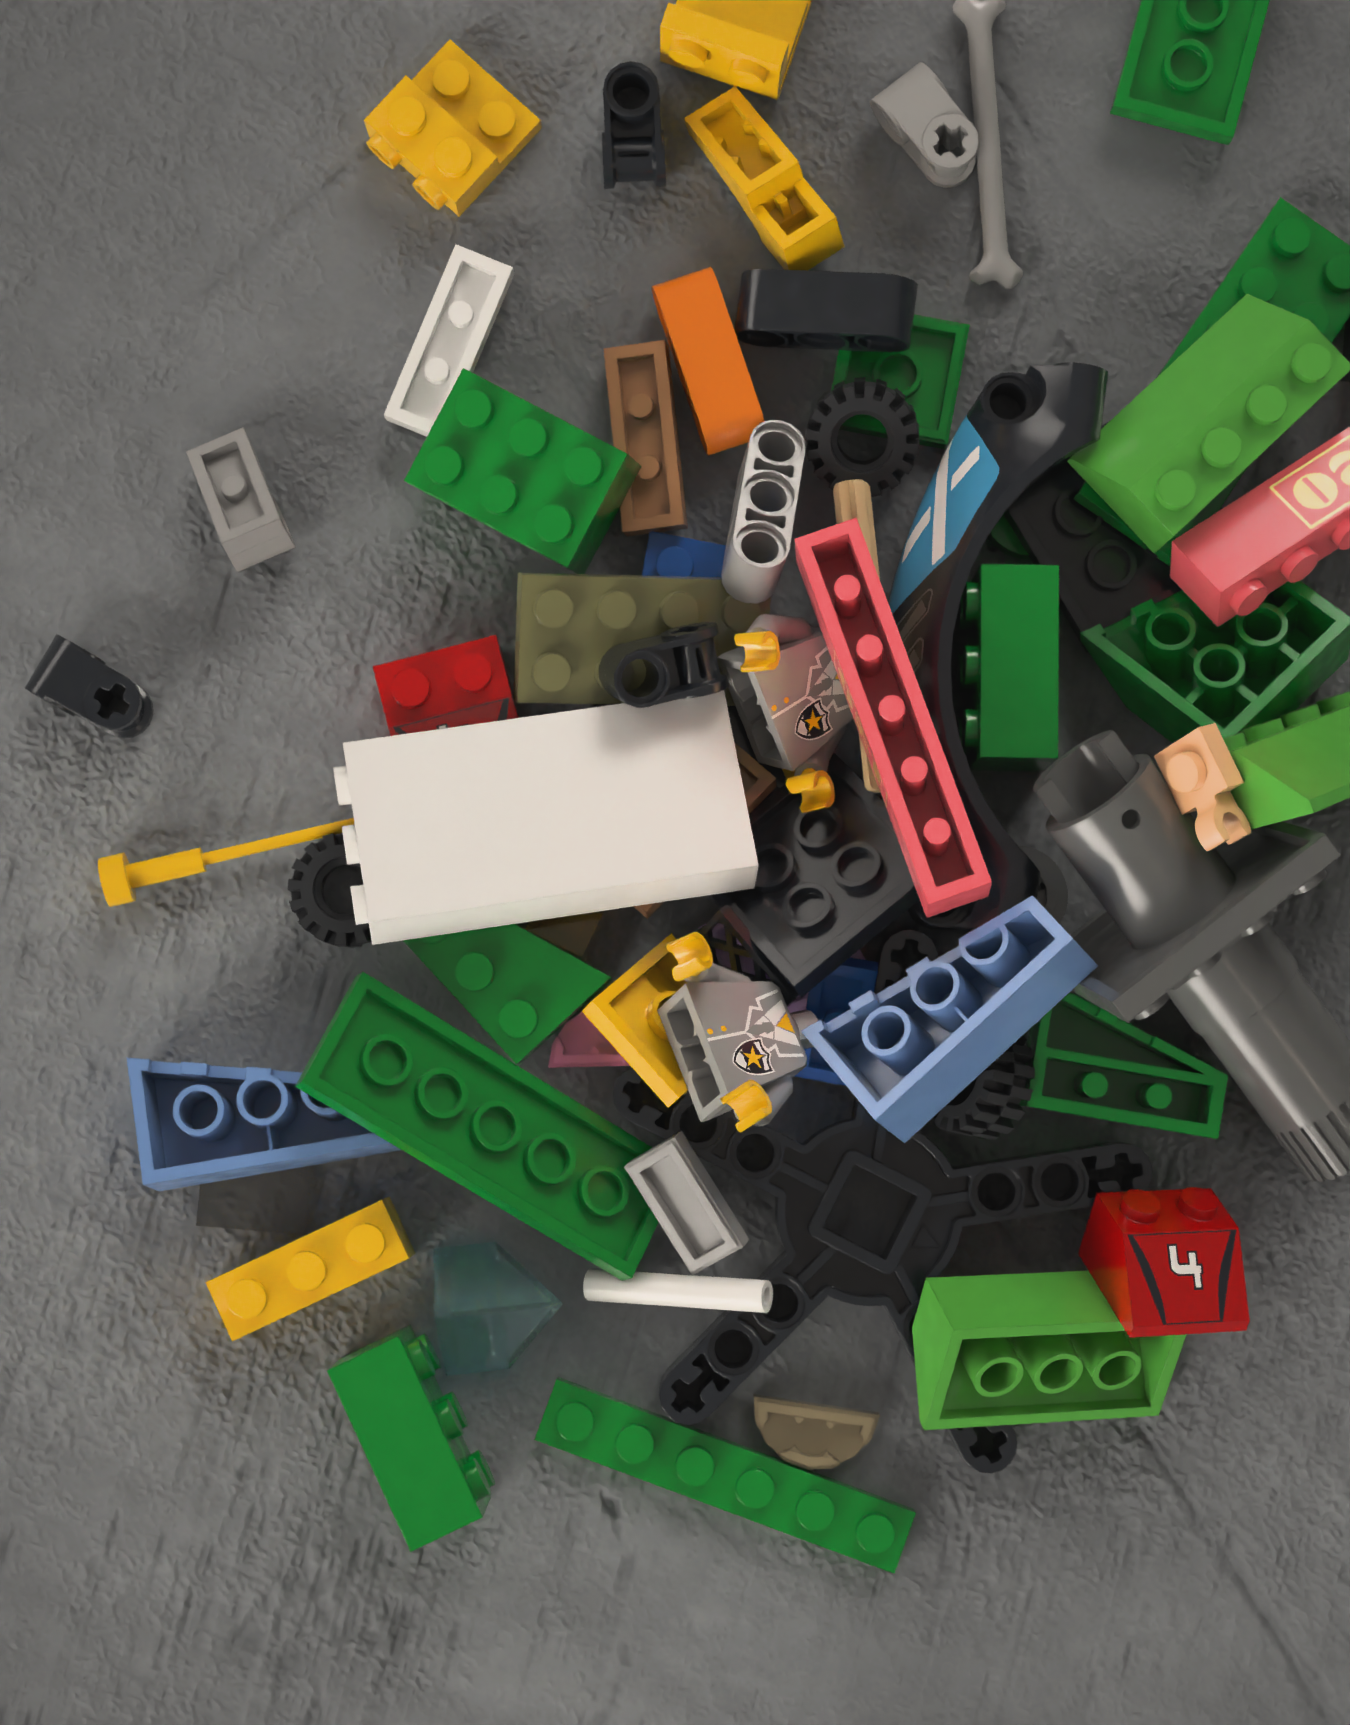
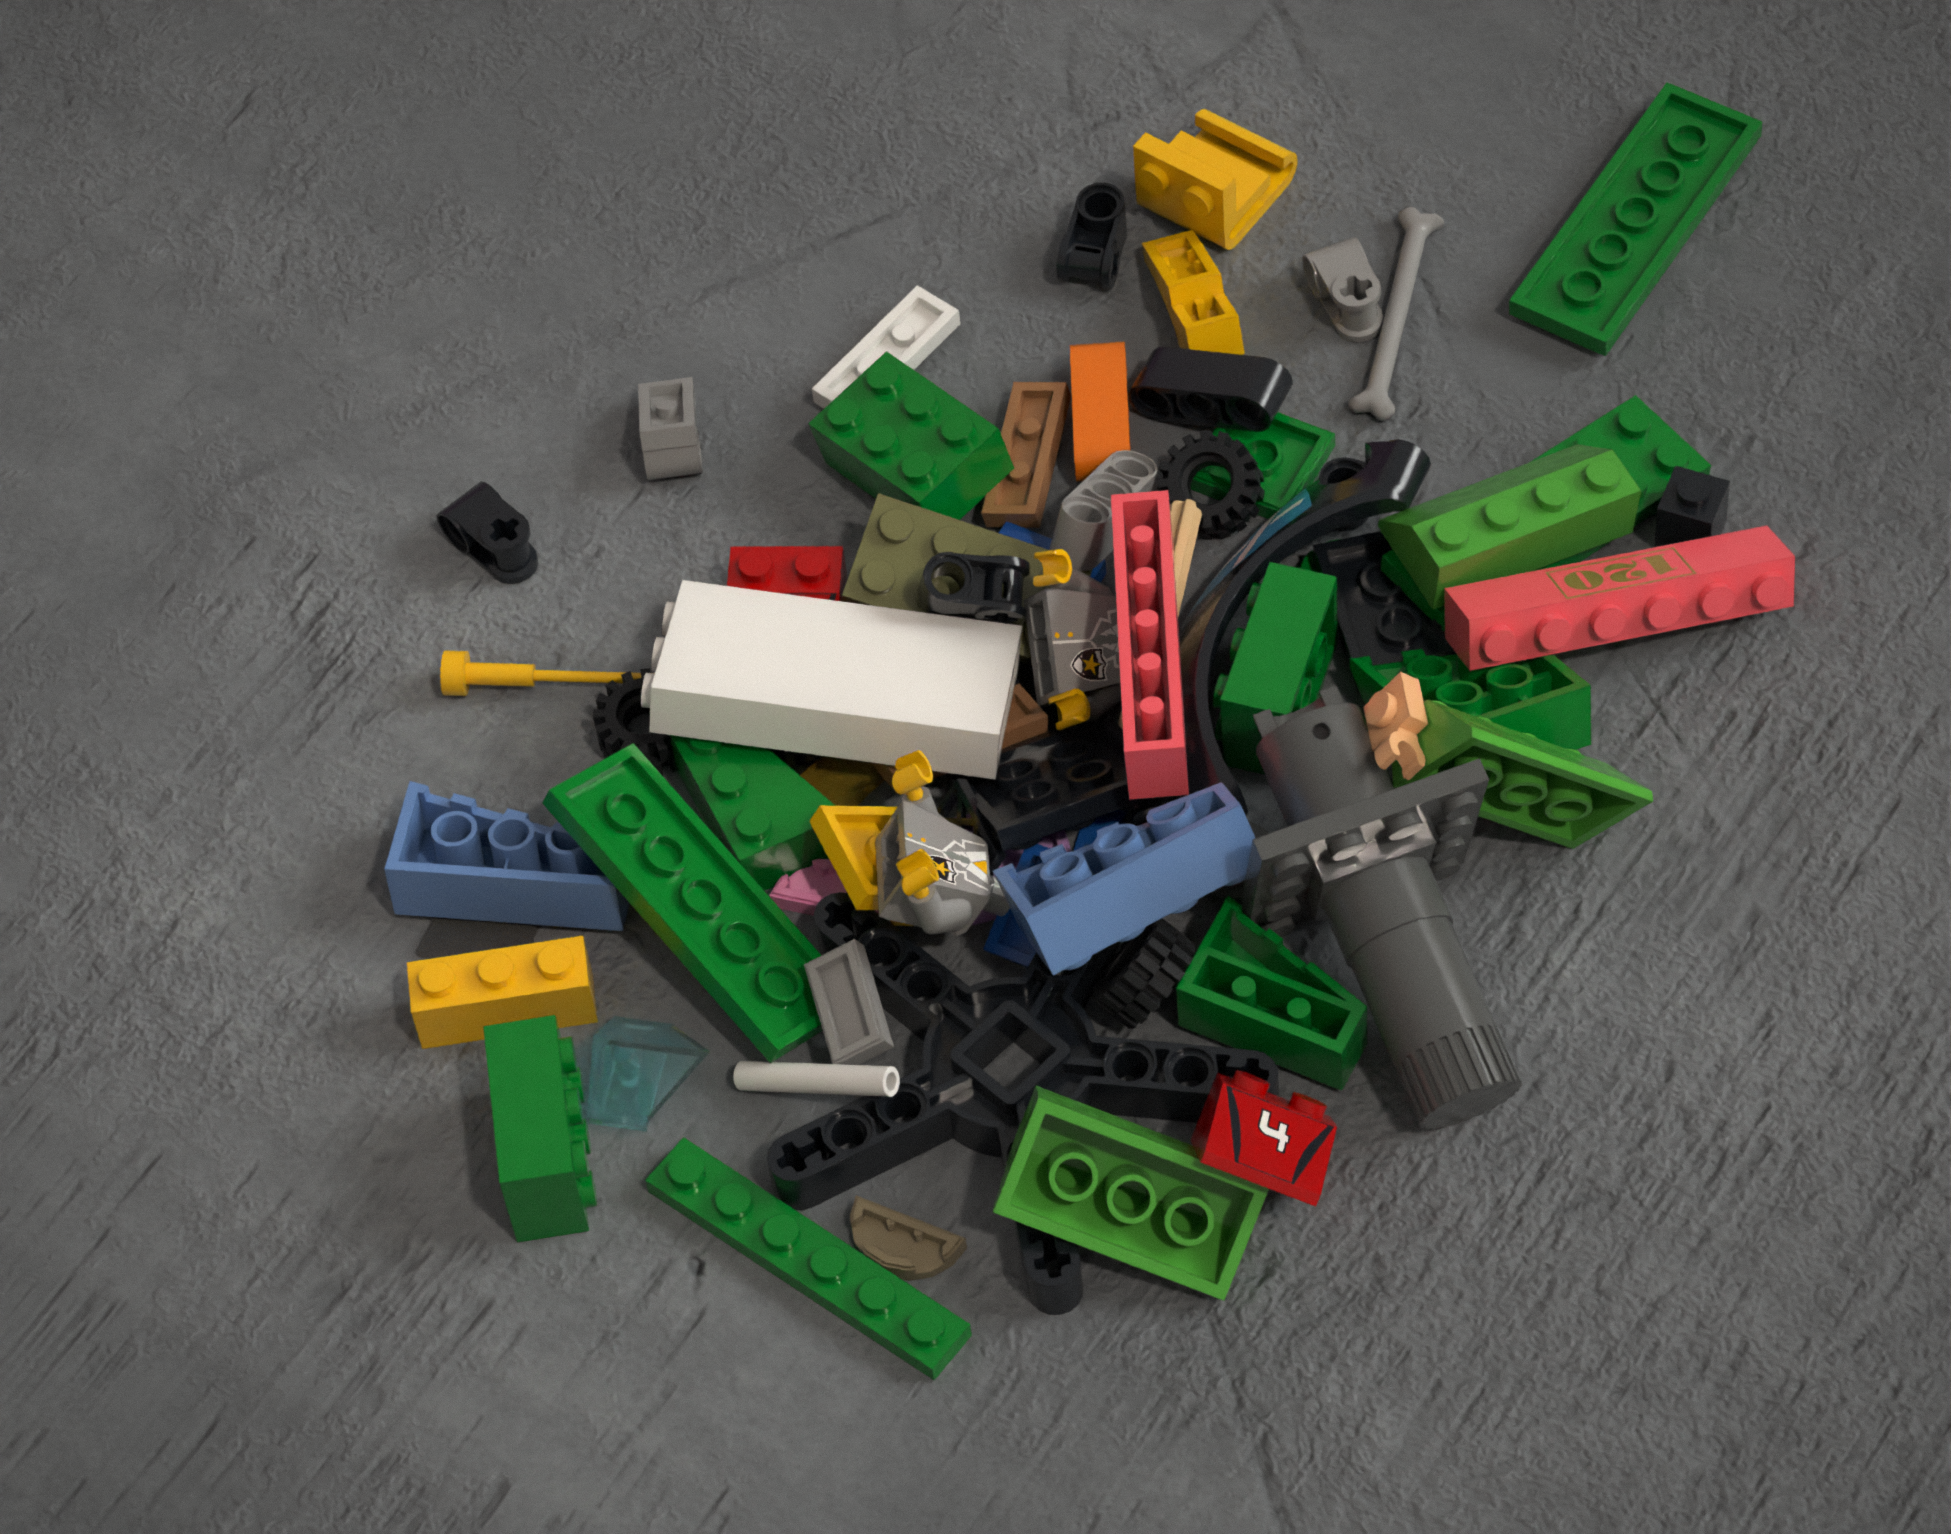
camera: 25 degrees right, 30 degrees down
(450, 129) = (944, 214): yellow plate -> none

